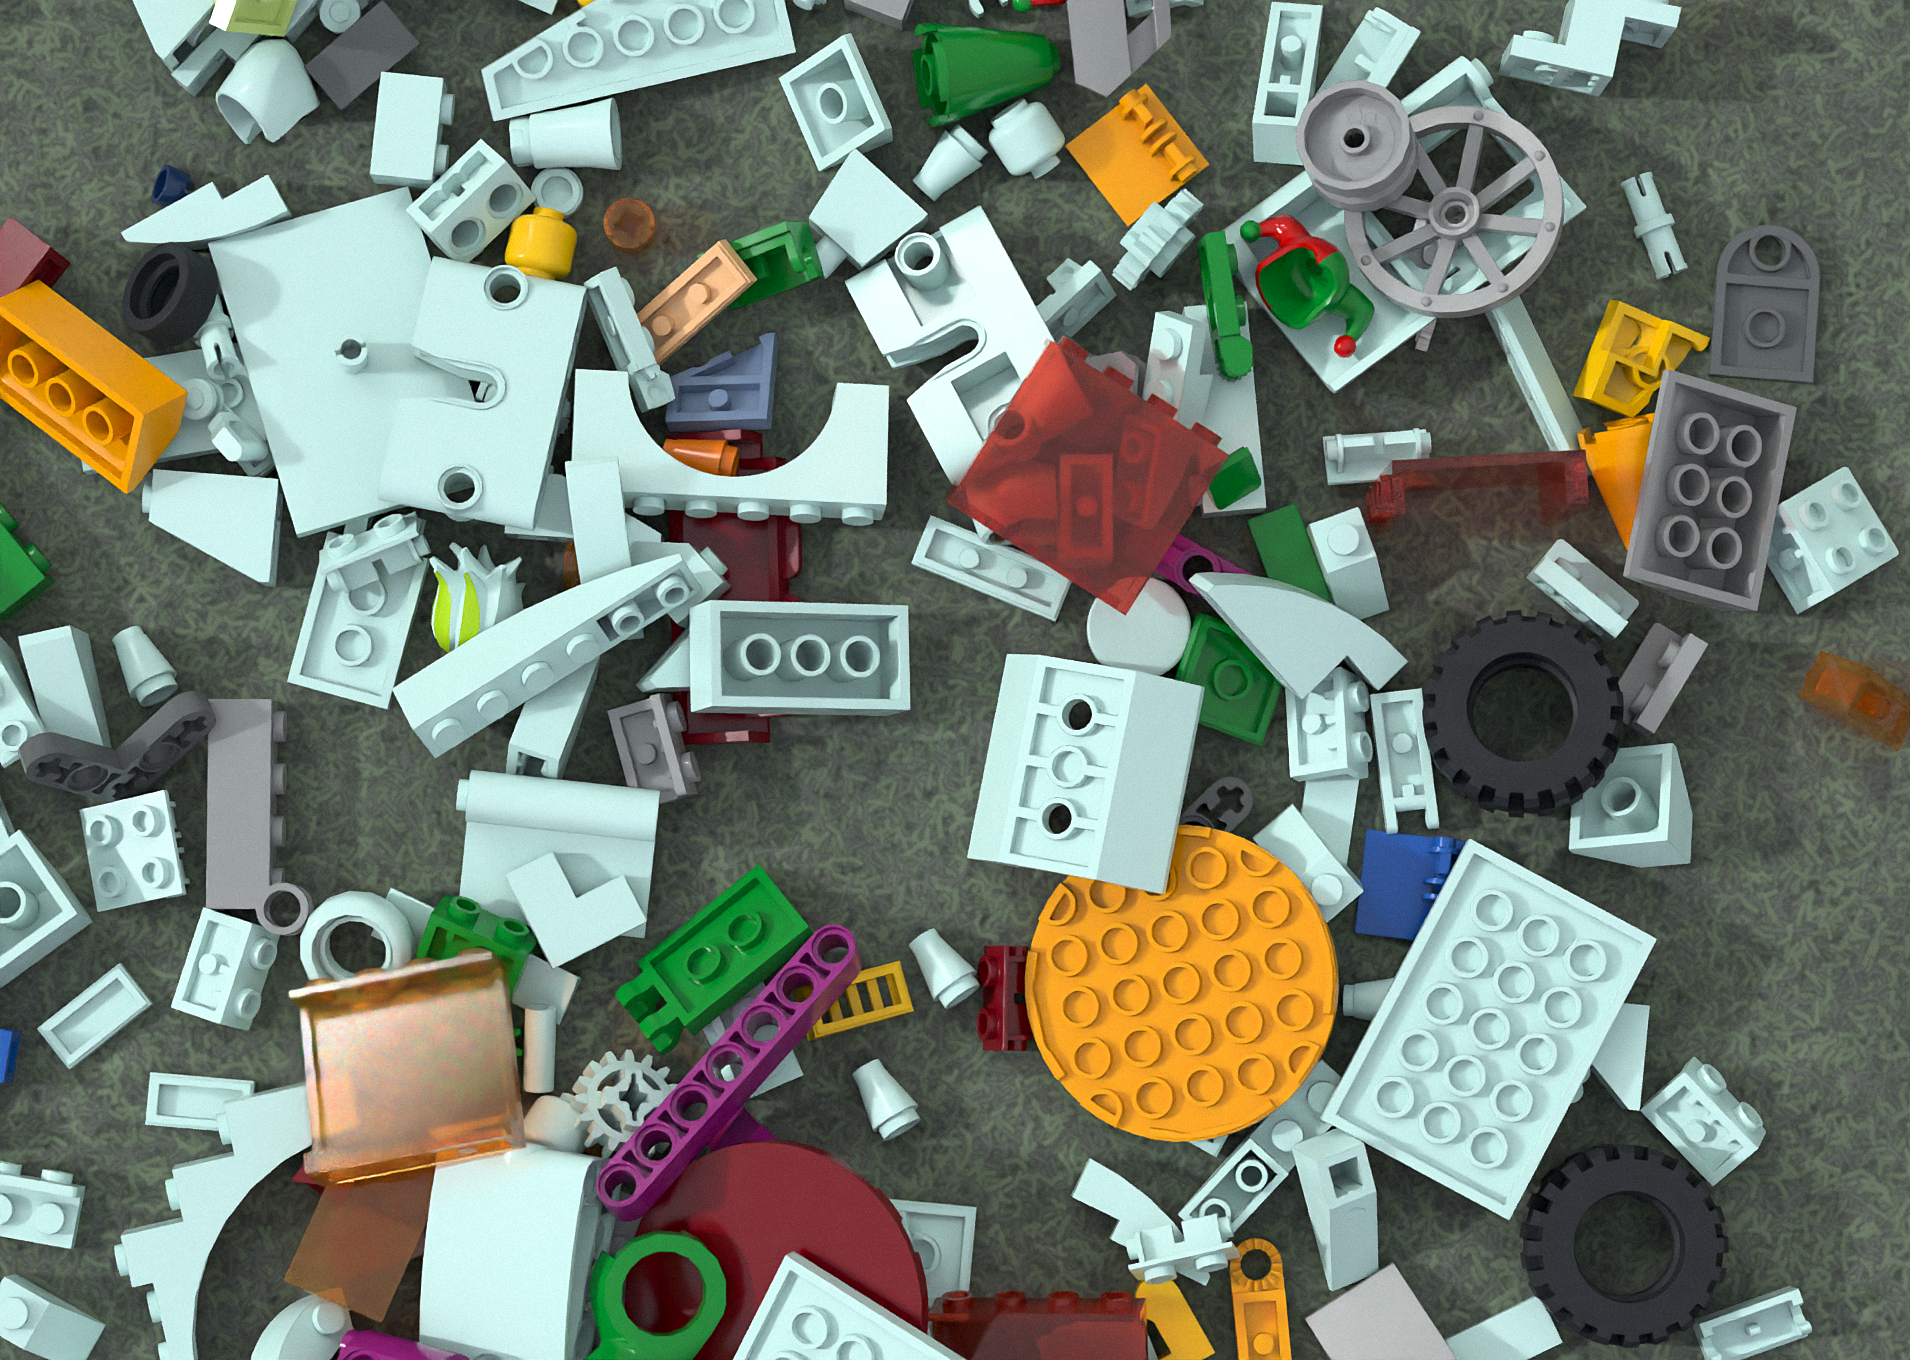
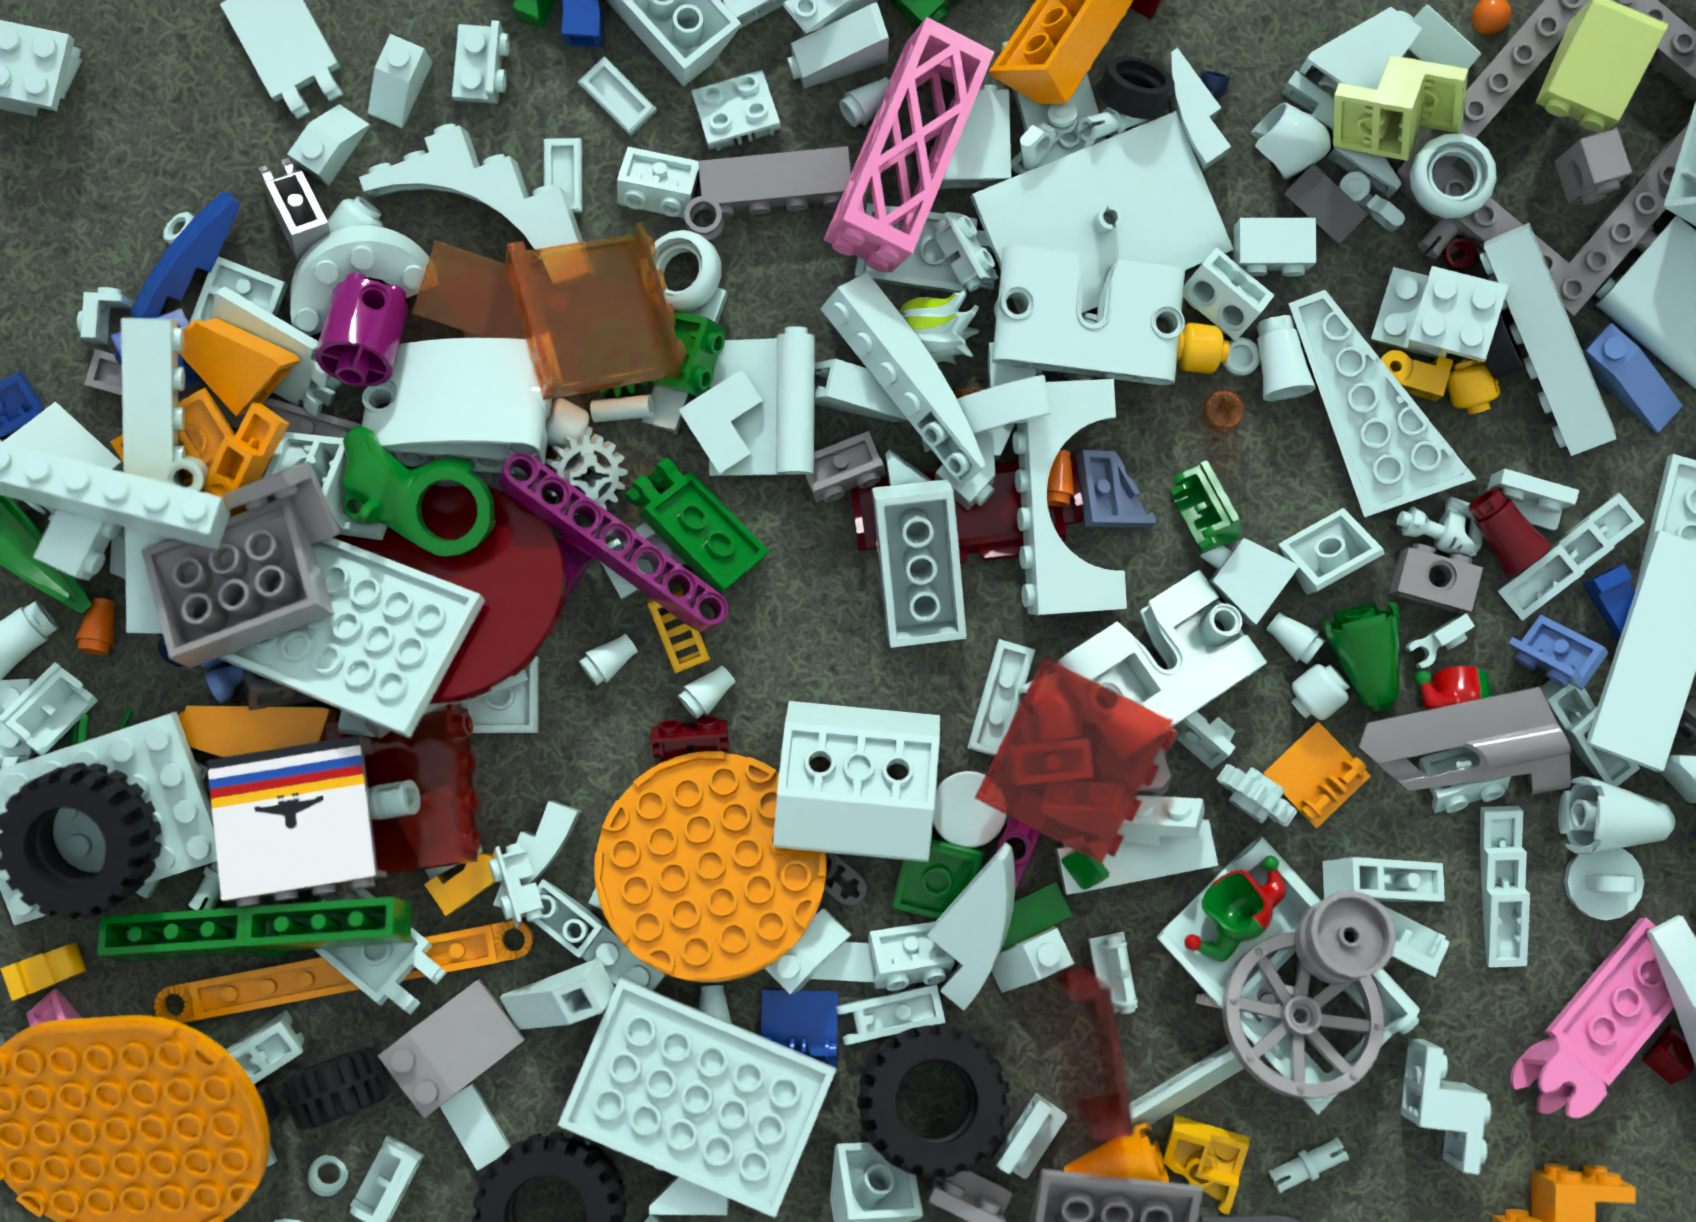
camera: 90 degrees right, 0 degrees up
(129, 769) = (788, 86): dark grey beam -> none
(323, 708) = (938, 55): none -> bright pink piece
(627, 340) = (1138, 416): light aqua hinge -> none
(695, 299) = (1167, 455): light nougat tile -> none
(1224, 309) = (1210, 849): green hinge -> none

